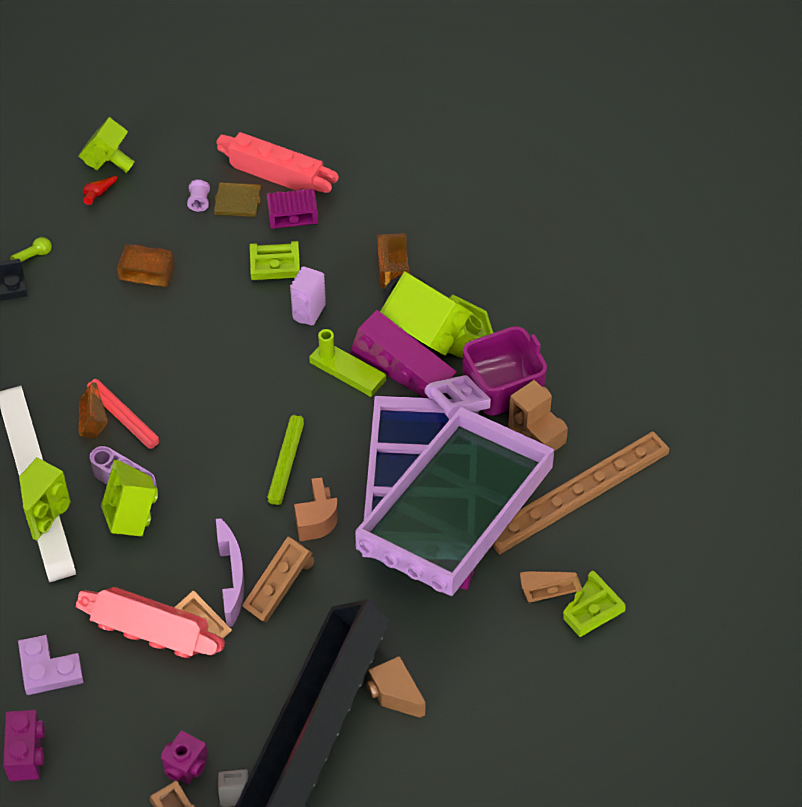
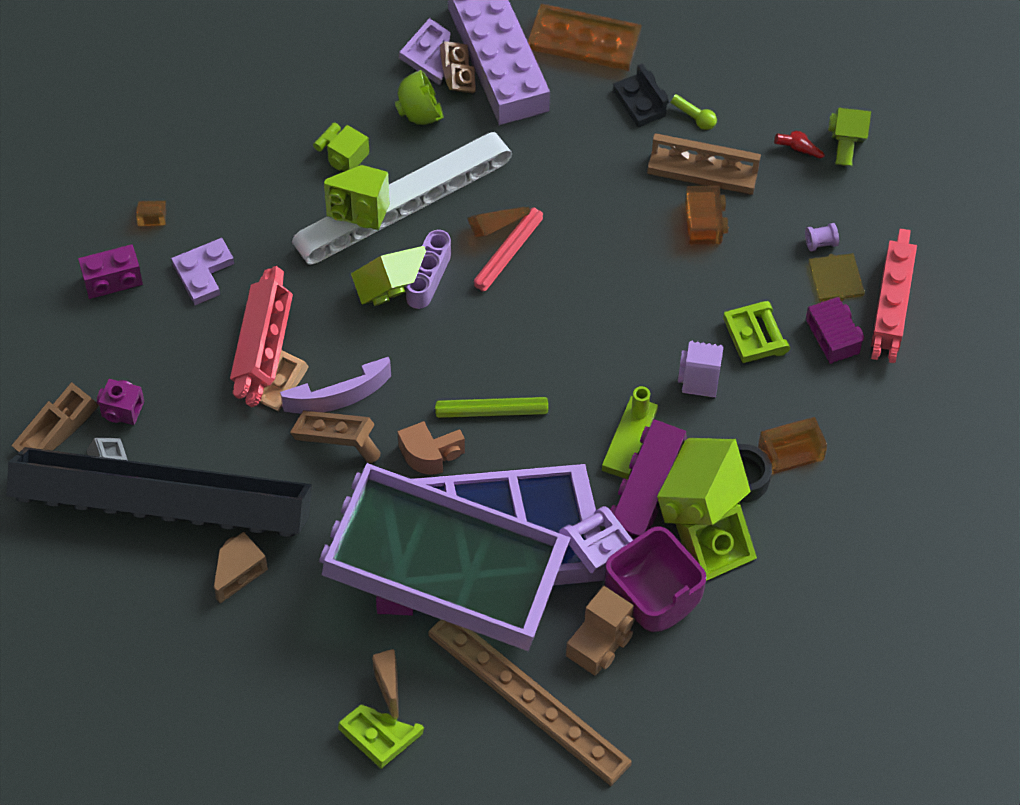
camera: 75 degrees right, 5 degrees up
(91, 256) = (703, 167): none -> medium nougat fence

